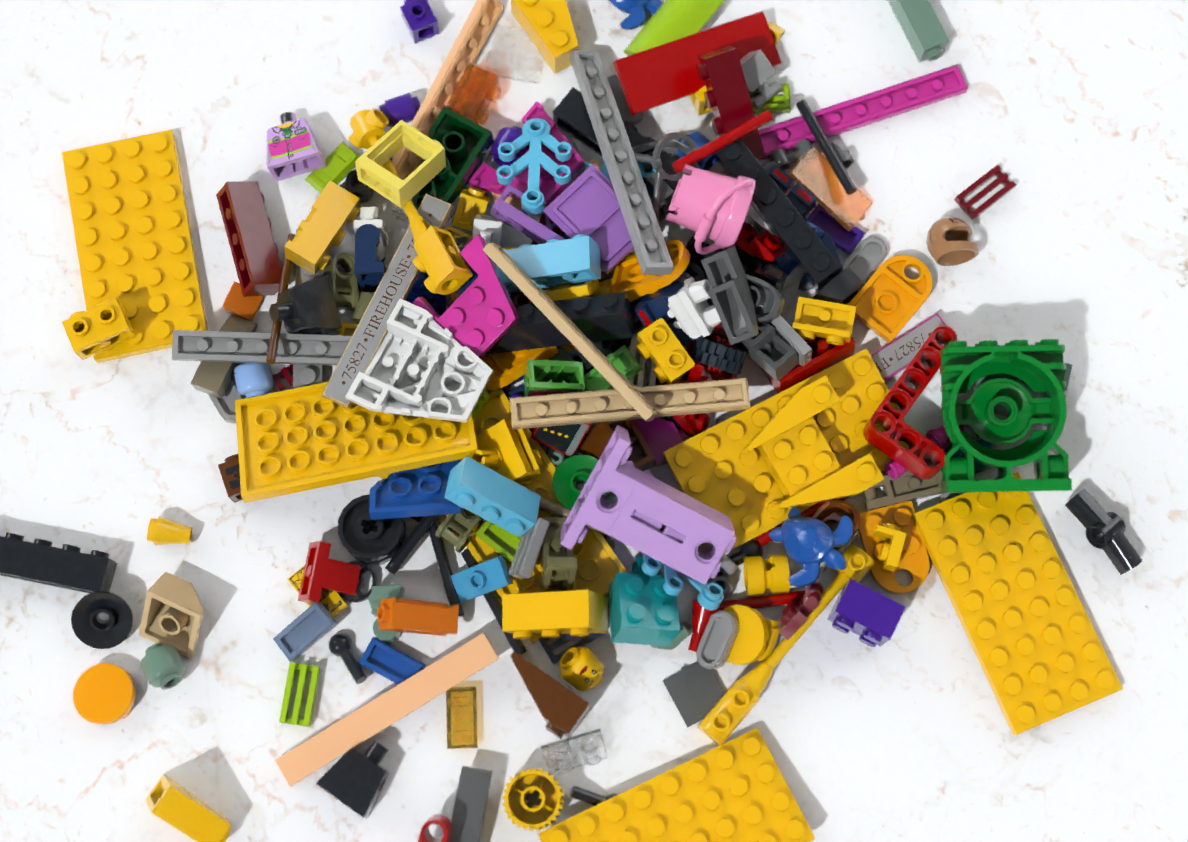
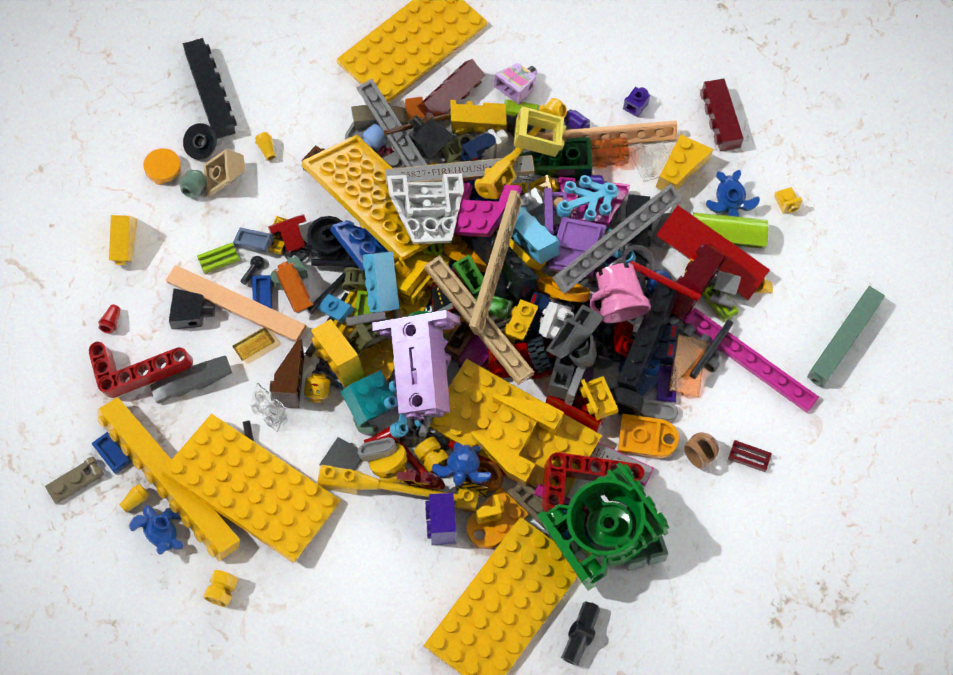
camera: 55 degrees right, 10 degrees down
(98, 328) = (352, 48): yellow brick -> none
(538, 816) = (234, 410): yellow brick -> none

